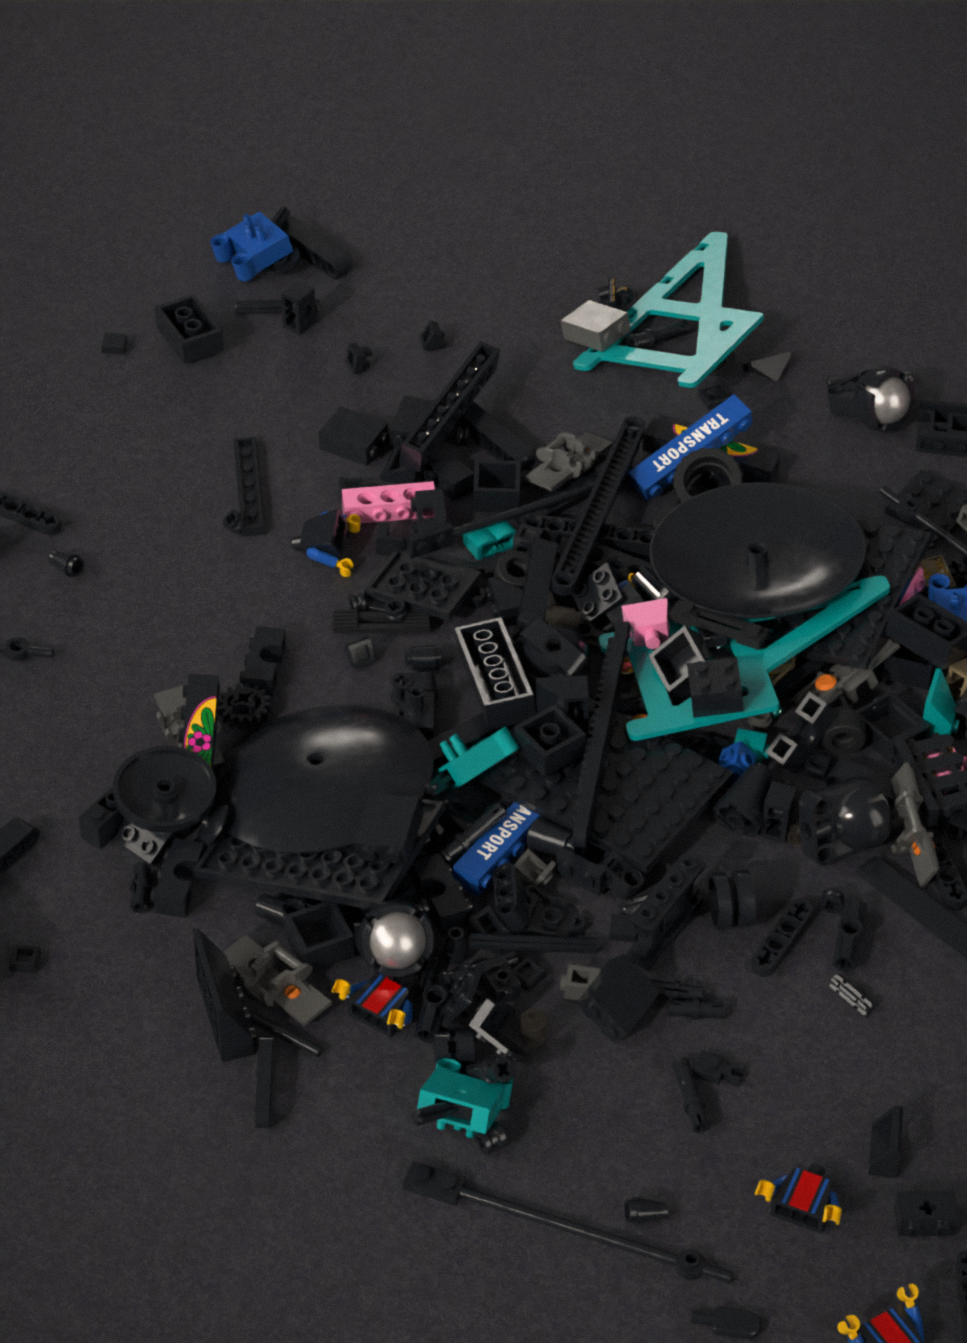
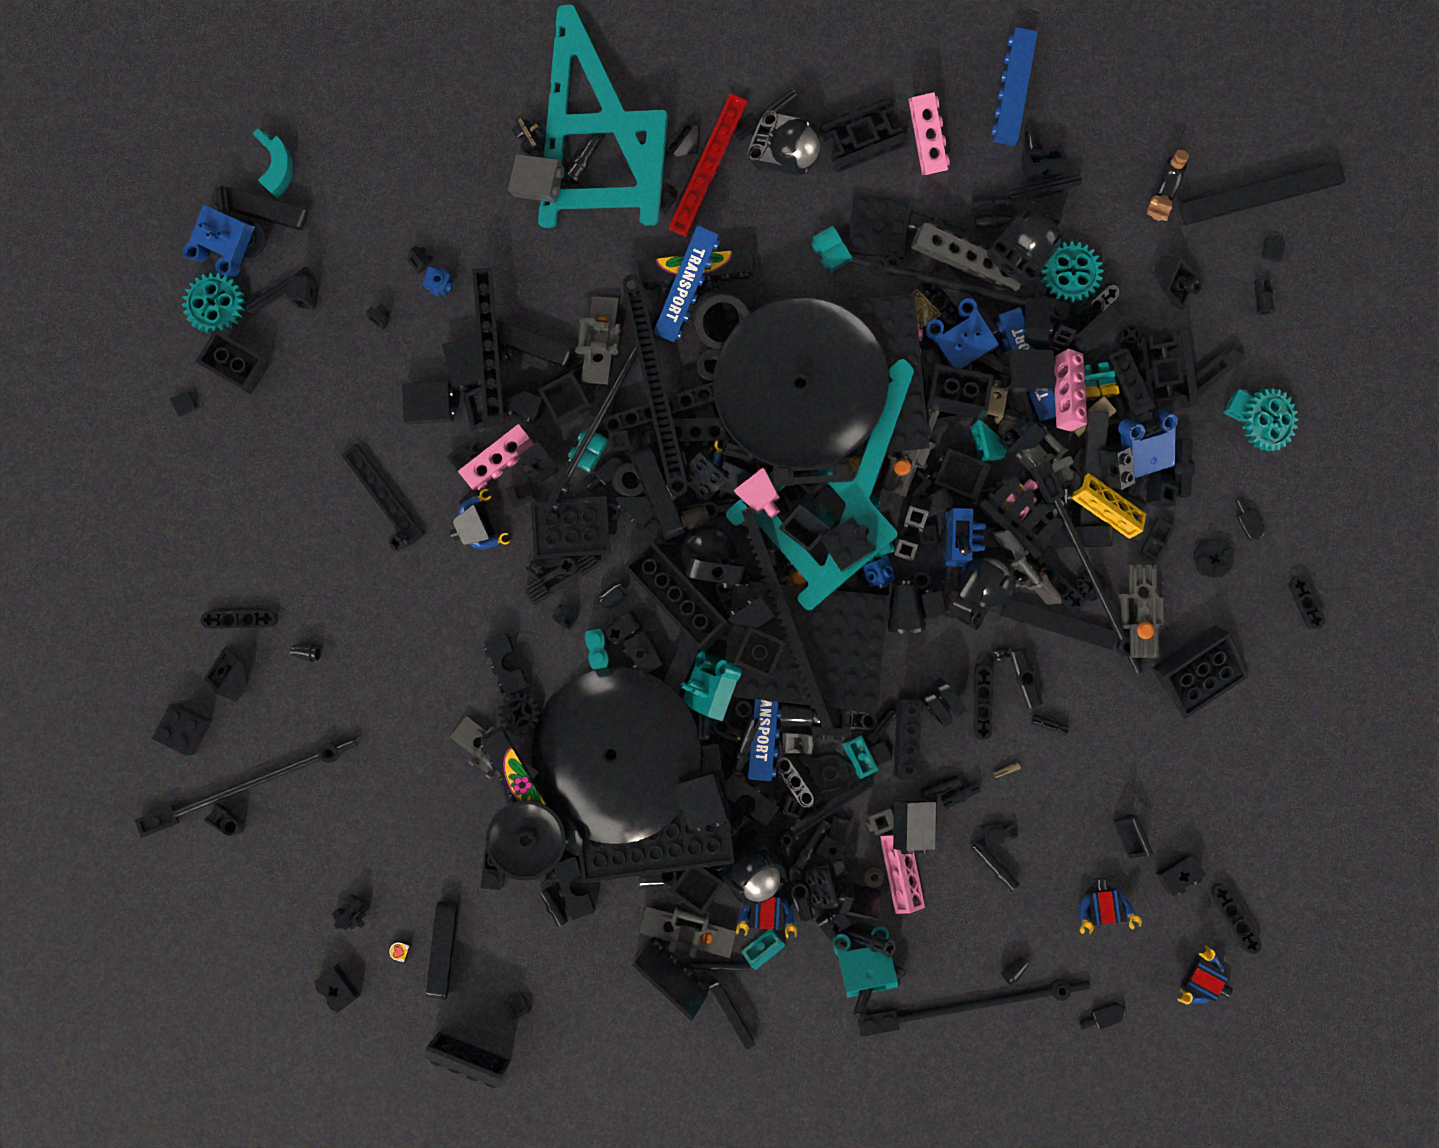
camera: 25 degrees left, 40 degrees up
(210, 284) = (201, 292): none -> teal gear
(350, 1044) = (763, 948): none -> teal slope
(351, 228) = (281, 167): none -> teal arch
(373, 687) = (596, 643): none -> teal brick
(438, 356) = (438, 281): none -> blue brick
(560, 1057) = (899, 877): none -> bright pink fence
(599, 915) = (860, 756): none -> teal slope
(770, 1014) = (1007, 769): none -> dark tan pin
(797, 380) = (708, 165): none -> red plate
(853, 750) = (960, 537): none -> blue piece
(866, 498) = (831, 249): none -> teal brick

